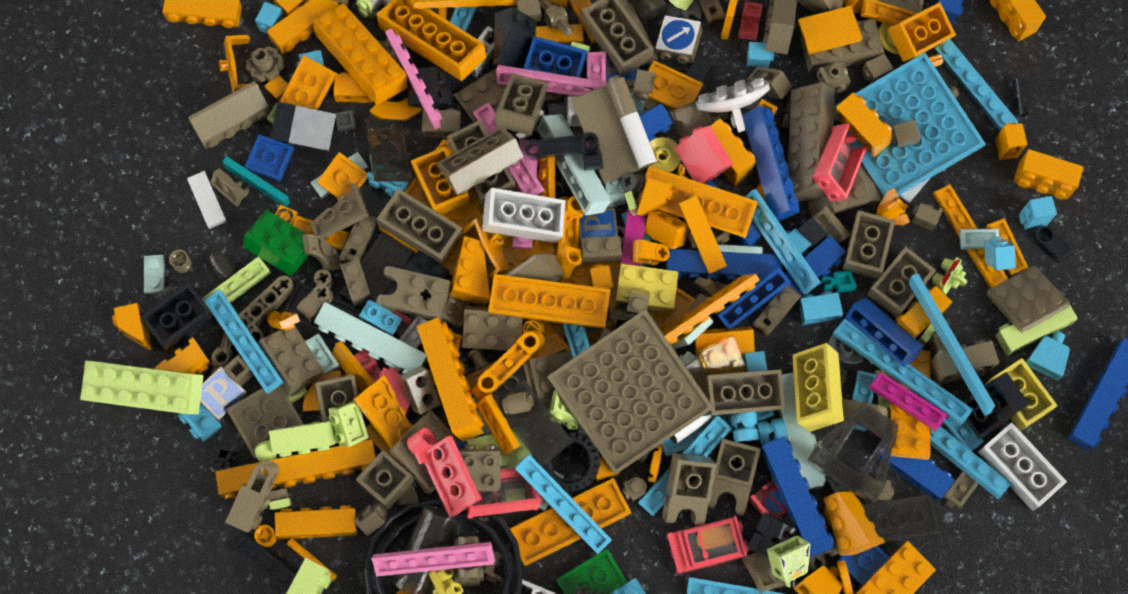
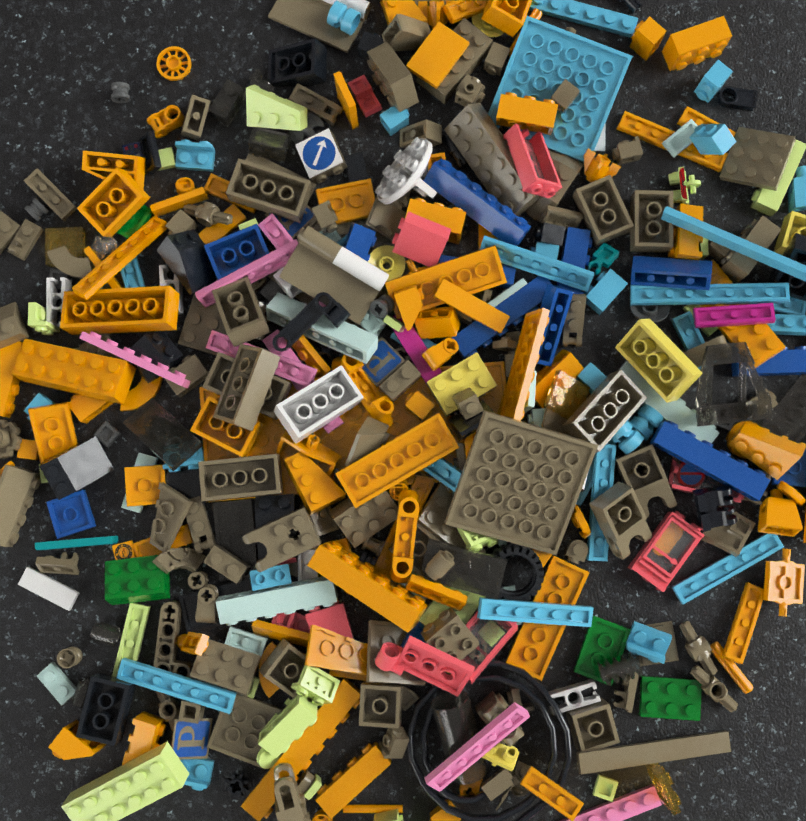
camera: 30 degrees left, 10 degrees up
(416, 392) = (349, 614): dark tan brick -> none
(789, 559) = (744, 515): yellowish green torso -> none

